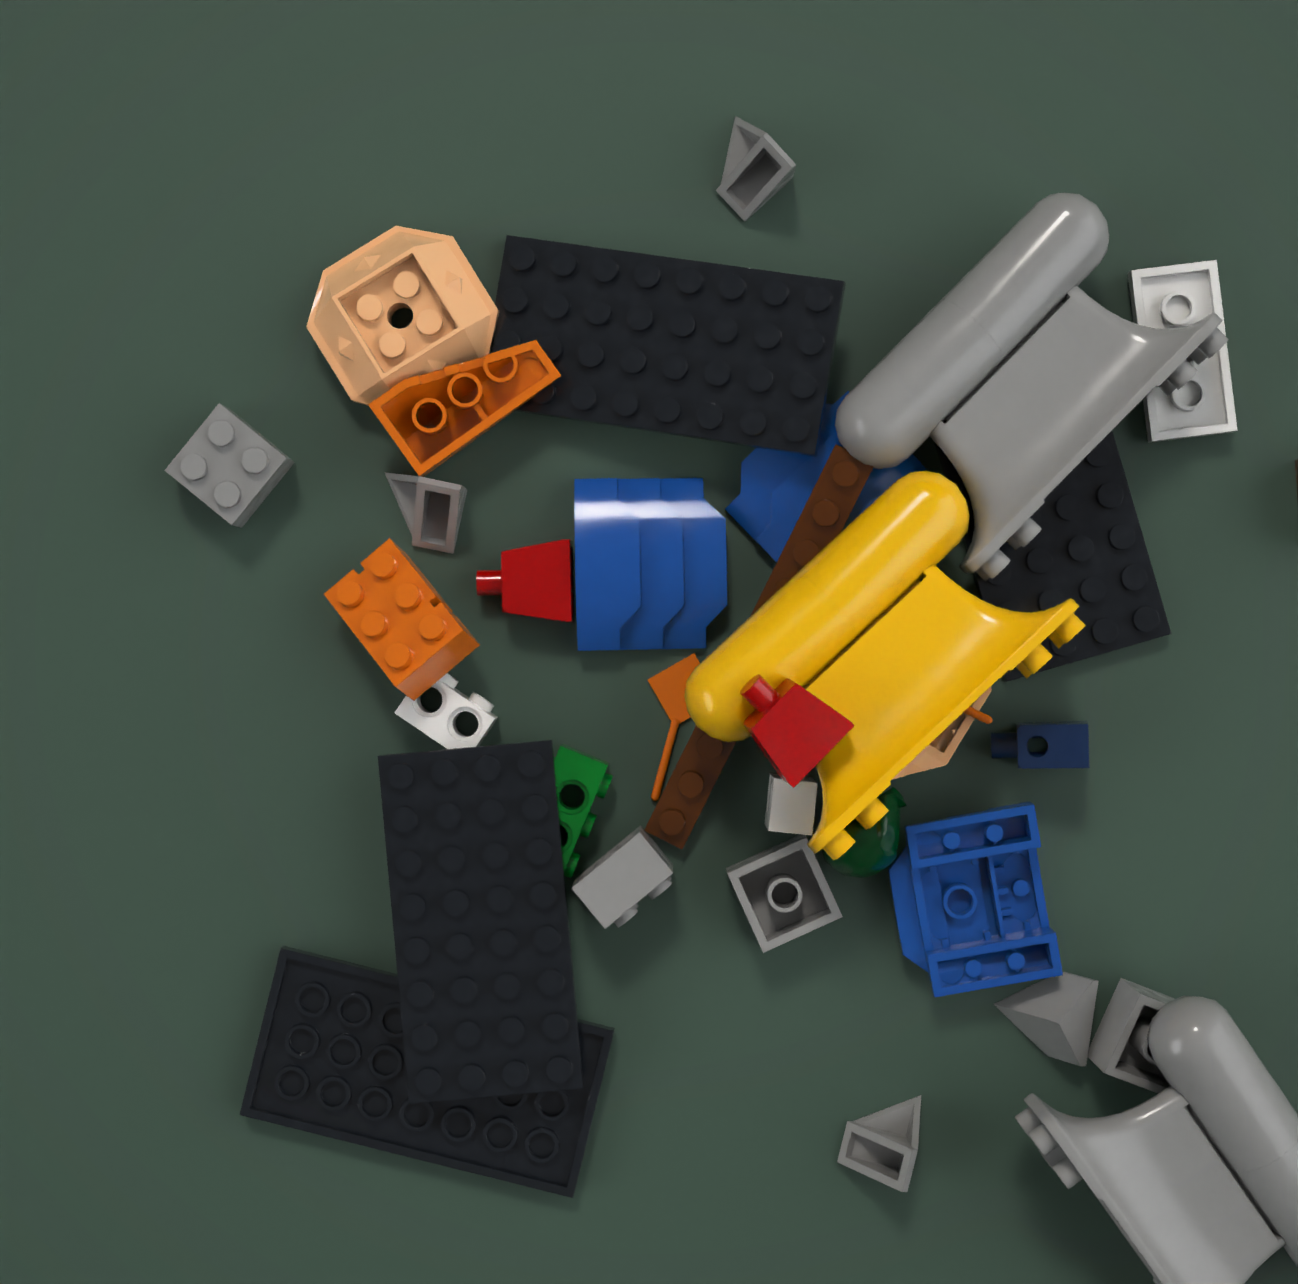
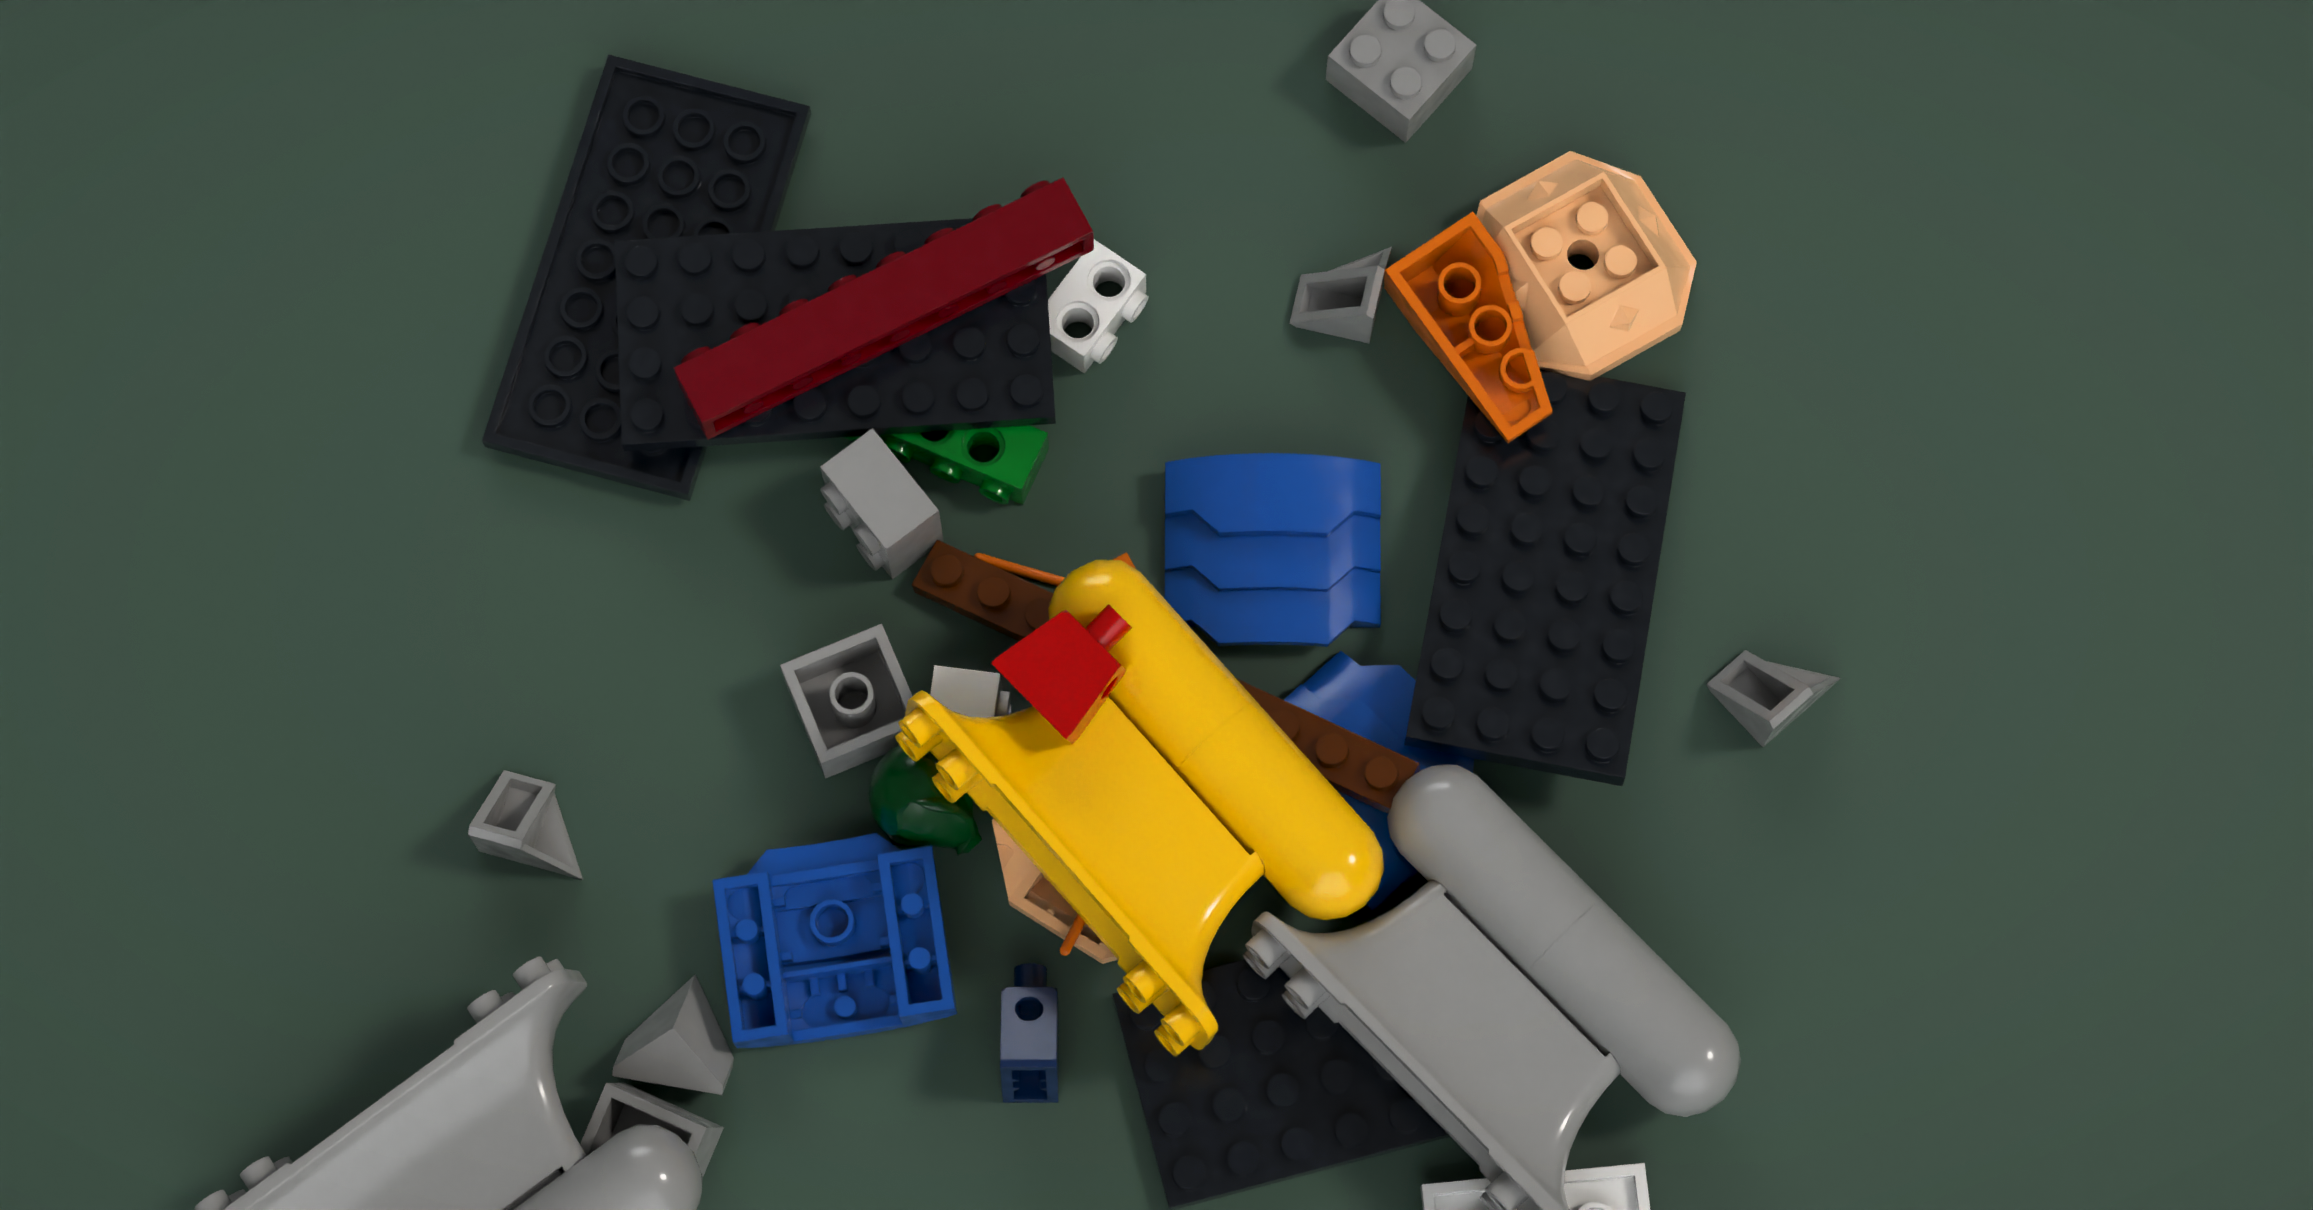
camera: 90 degrees right, 15 degrees down
(396, 622) = (1199, 239): orange piece -> none
(469, 883) = (884, 307): none -> dark red brick
(533, 581) = (1253, 407): red torso -> none

